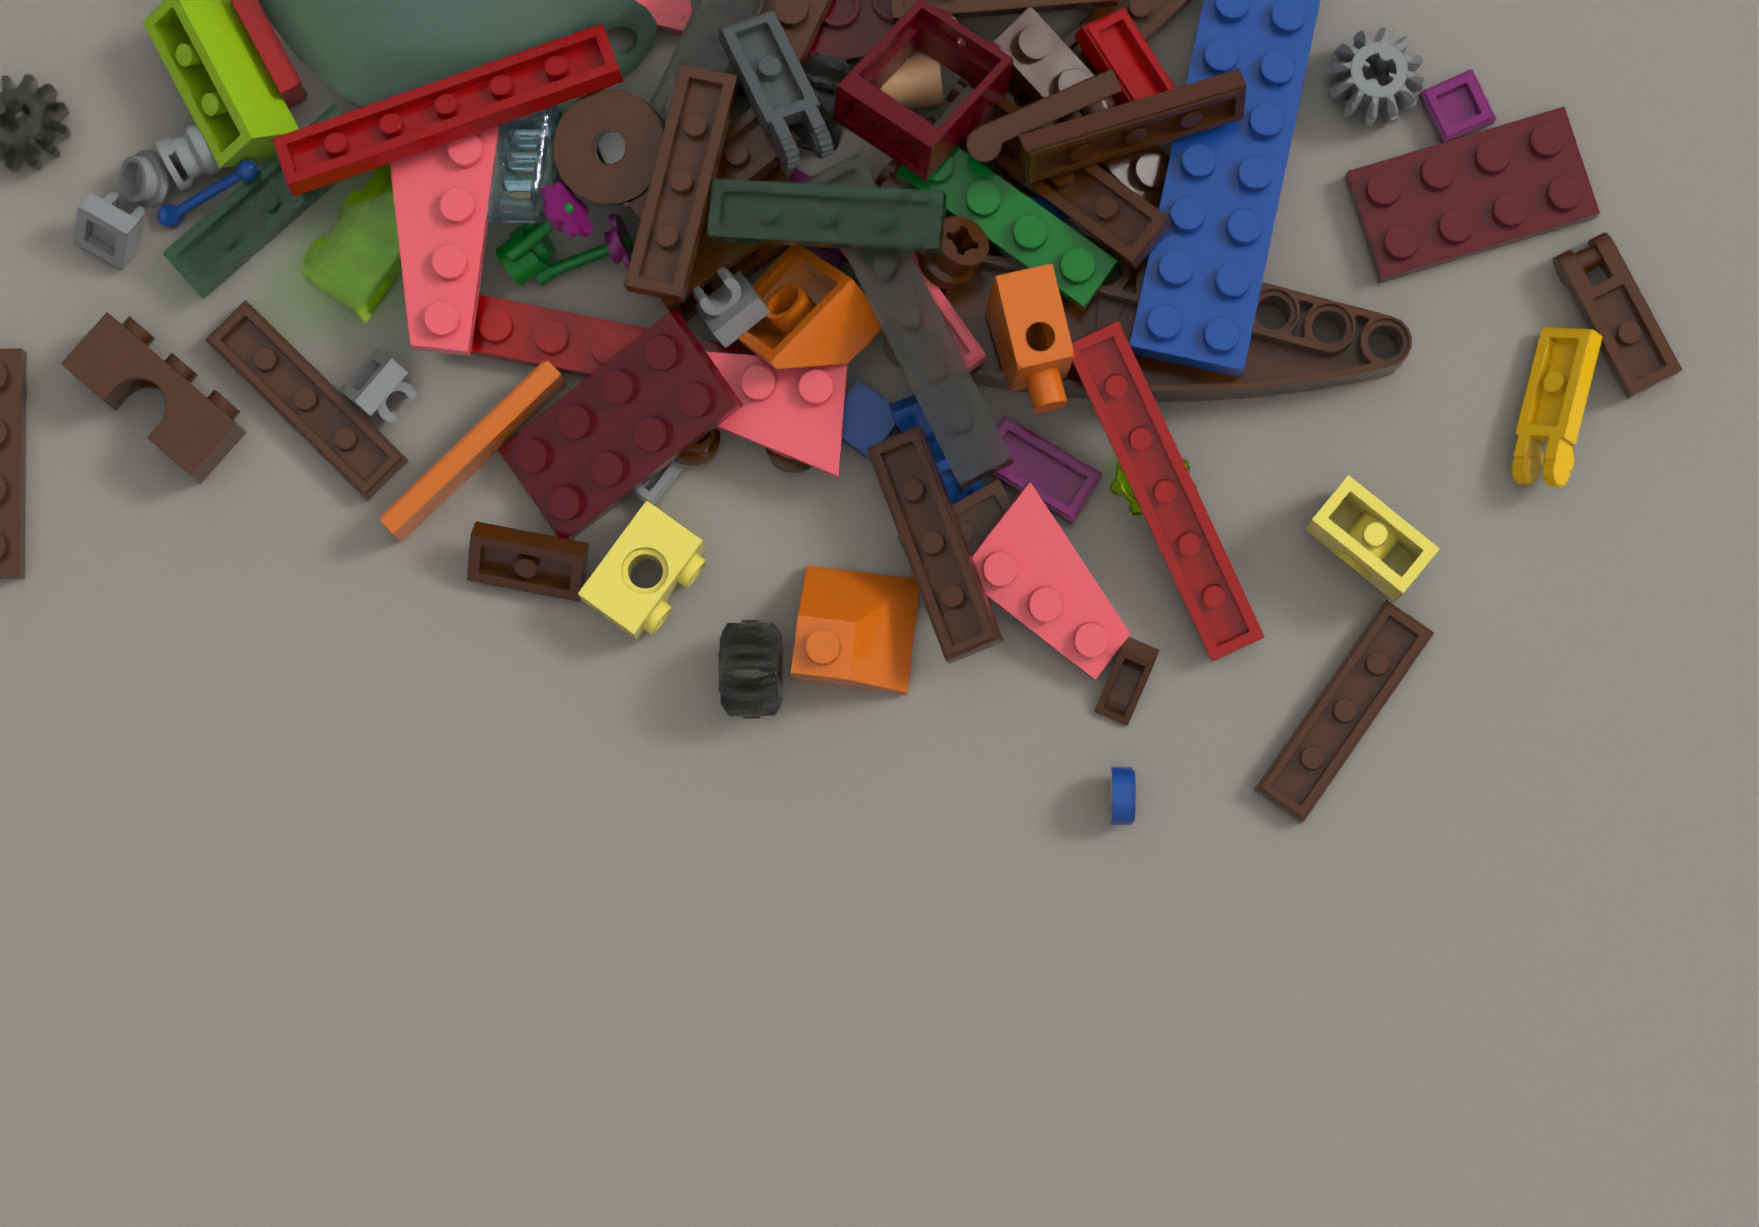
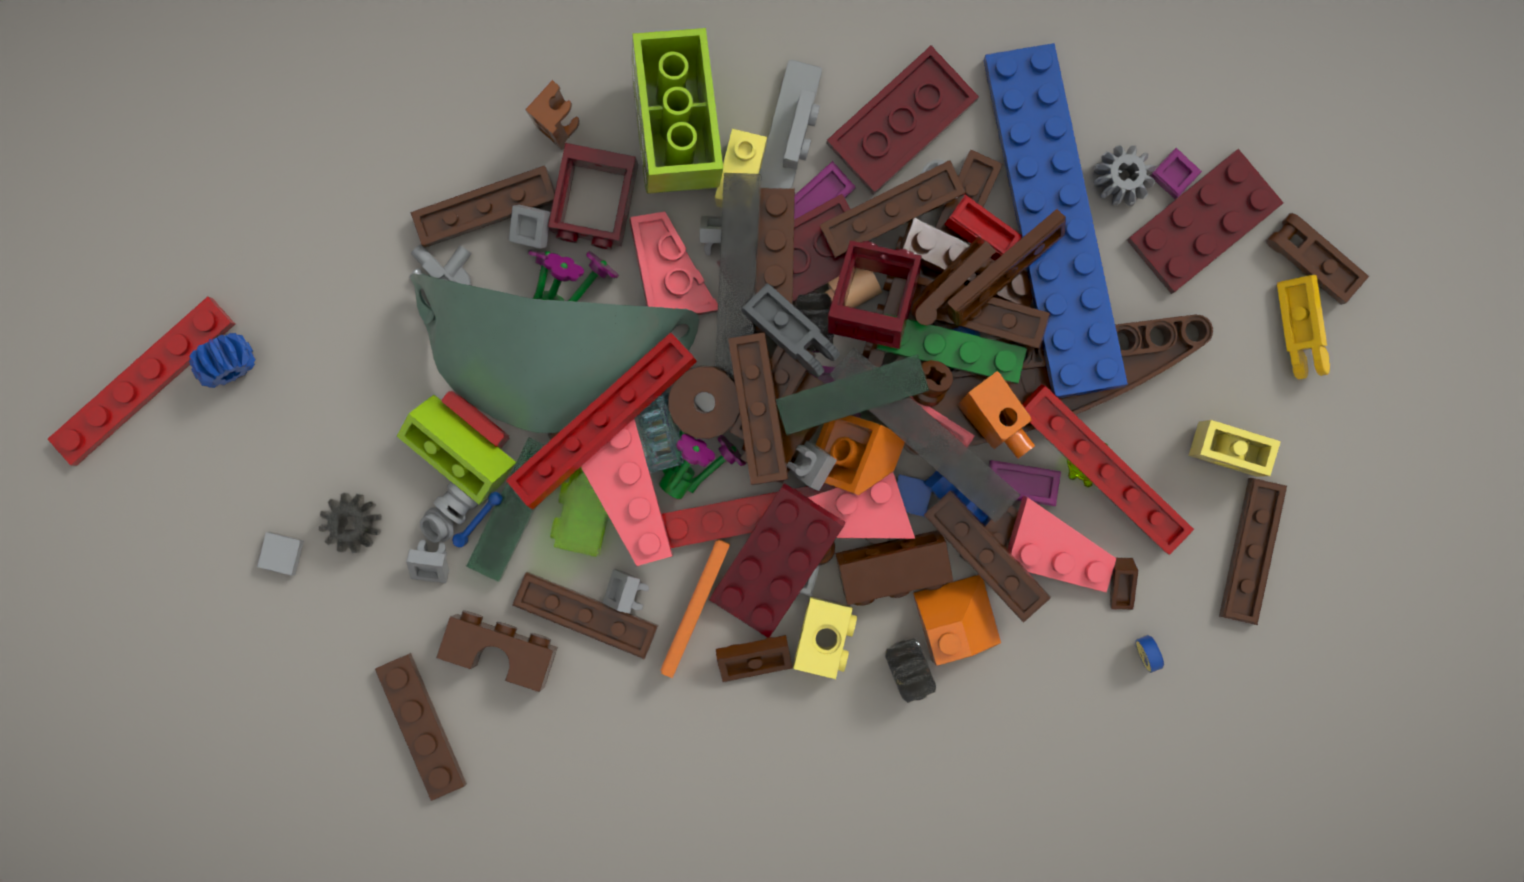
camera: 25 degrees left, 5 degrees up
(790, 512) = (894, 568): none -> reddish brown brick

